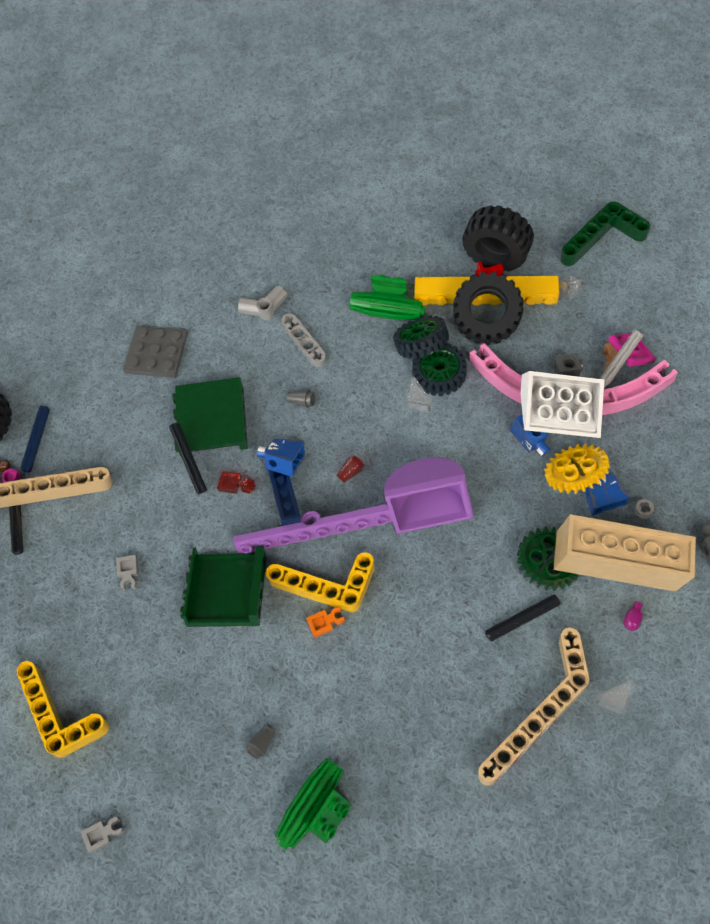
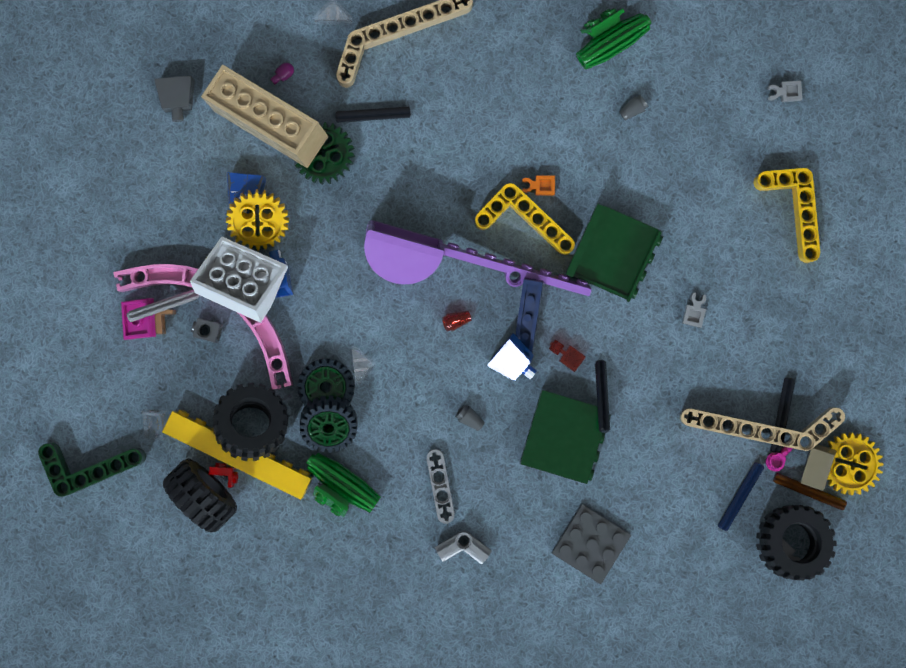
camera: 165 degrees left, 25 degrees up
(644, 502) = (213, 161): light grey bush -> none

